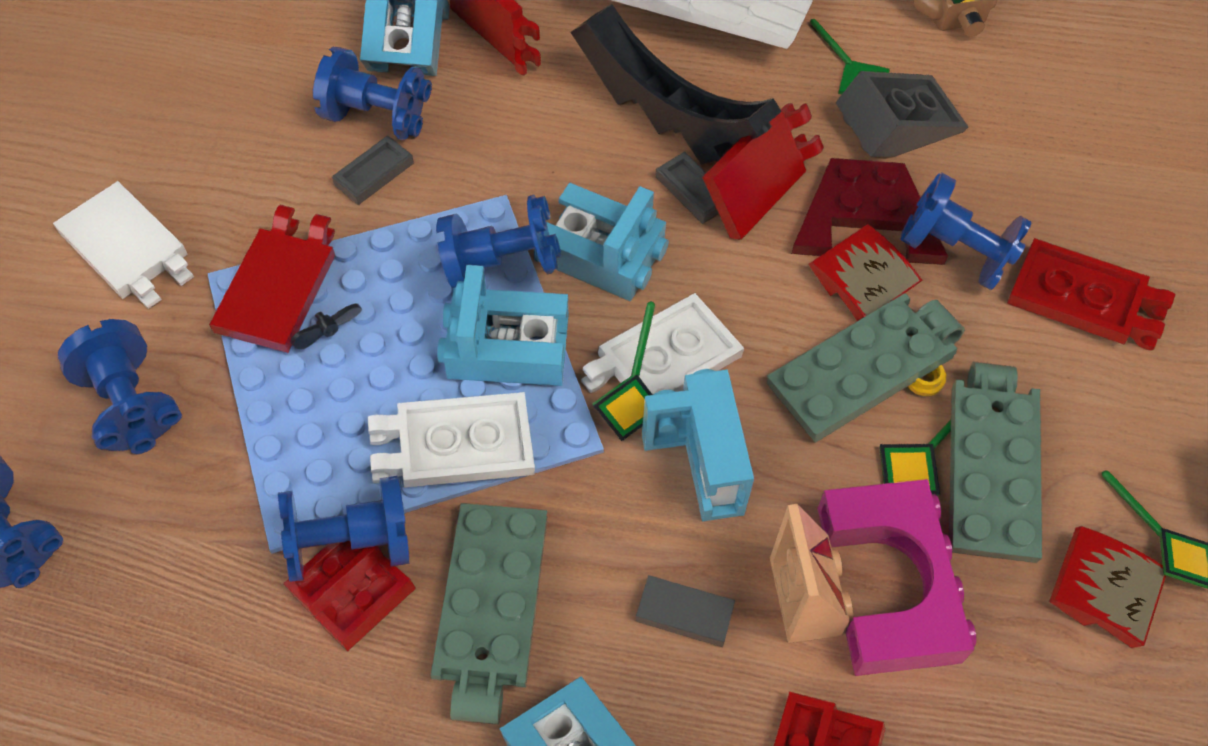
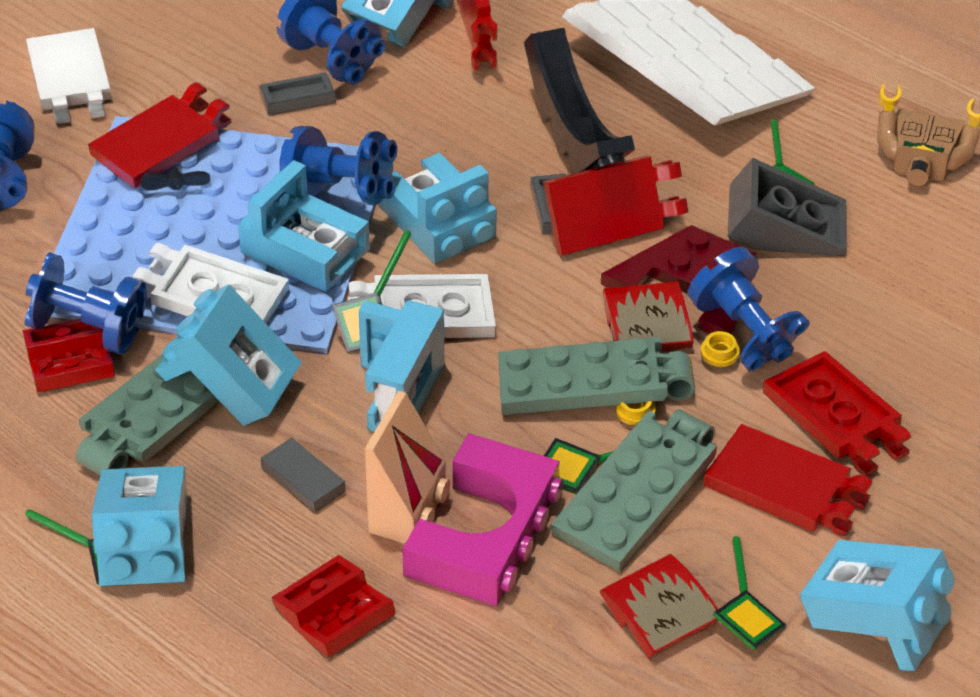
camera: 30 degrees right, 15 degrees down
(538, 519) = (231, 355): none -> medium azure brick
(953, 271) = (720, 349): none -> yellow plate
(1105, 389) = (787, 481): none -> red tile

